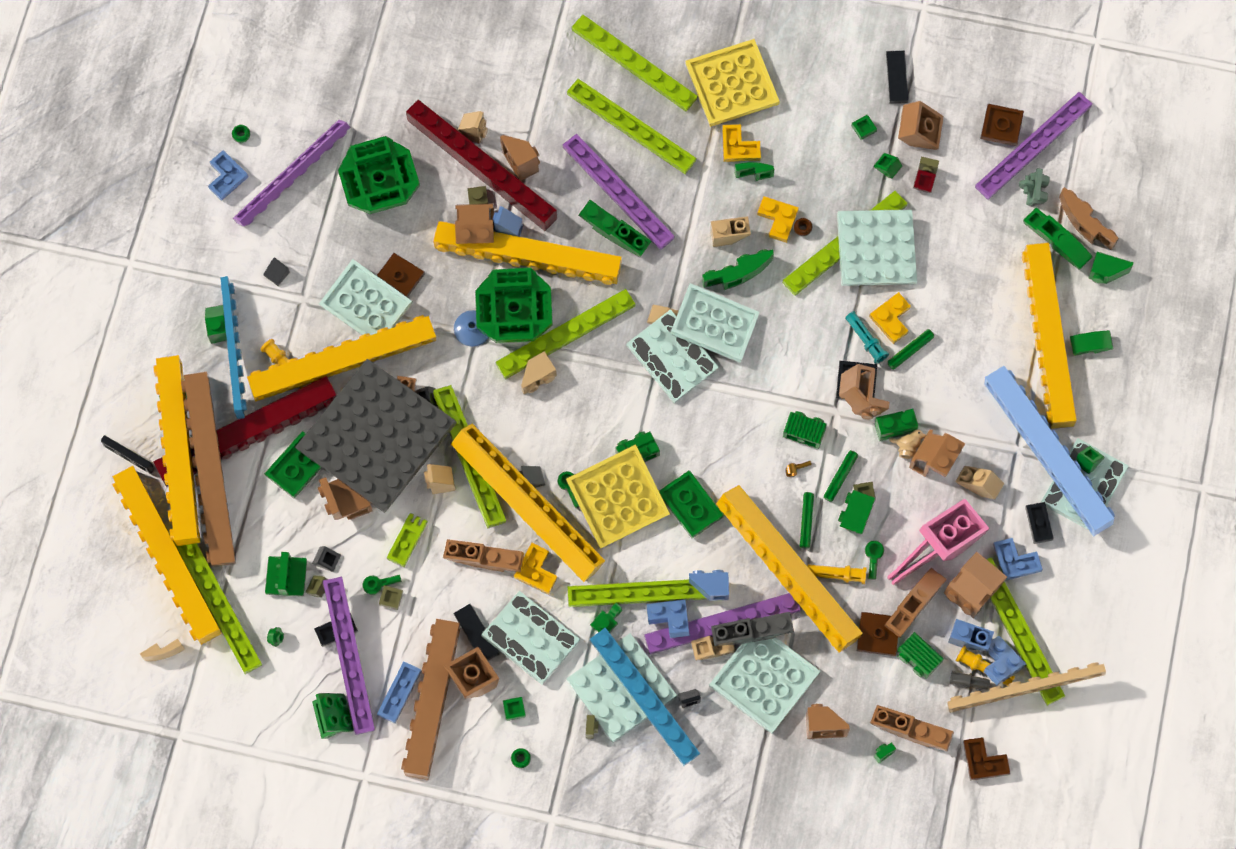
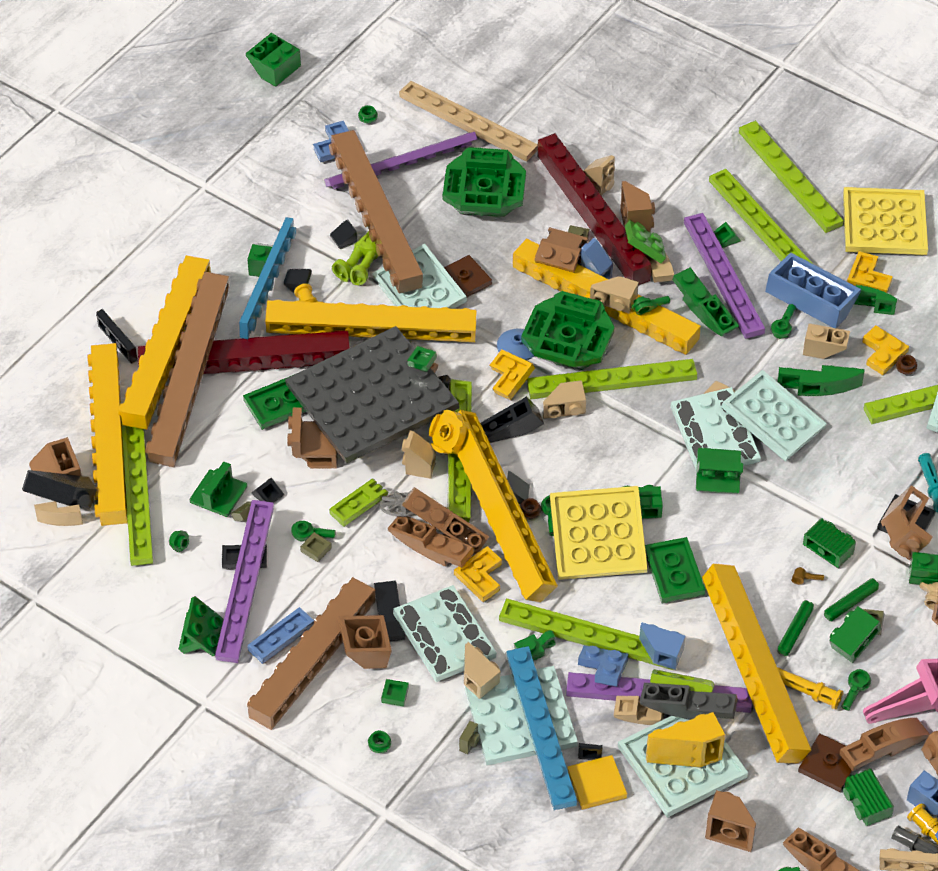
camera: 20 degrees right, 20 degrees down
(131, 104) = (274, 59): none -> green slope
(139, 609) = (56, 458): none -> medium nougat slope
(156, 630) = (61, 488): none -> black slope
(257, 334) = (296, 277): none -> black slope
(297, 243) = (376, 212): none -> medium nougat brick
(303, 277) = (349, 269): none -> lime piece
(332, 107) = (468, 120): none -> tan plate
(407, 390) = (422, 358): none -> green plate
(446, 528) = (396, 504): none -> light grey wheel
(464, 446) = (457, 427): none -> yellow plate
(484, 361) = (513, 371): none -> yellow plate
(489, 533) = (444, 519): none -> medium nougat slope
(501, 412) = (513, 421): none -> black slope
(539, 254) = (616, 293): none -> tan slope
(541, 186) = (645, 241): none -> bright green plate
(550, 485) = (530, 508): none -> reddish brown plate
(562, 203) = (661, 271): none -> tan slope
(566, 257) = (643, 305): none -> green plate
(575, 668) = (479, 672): none -> tan slope
(603, 147) = (726, 235): none -> green slope
(686, 227) = (782, 328): none -> green plate
(690, 395) = (718, 470): none -> green bracket
(700, 182) = (812, 290): none -> medium blue slope
(705, 724) = (597, 782): none -> yellow tile
(740, 611) = (695, 683): none -> lime hinge
(772, 669) = (687, 743): none -> yellow slope

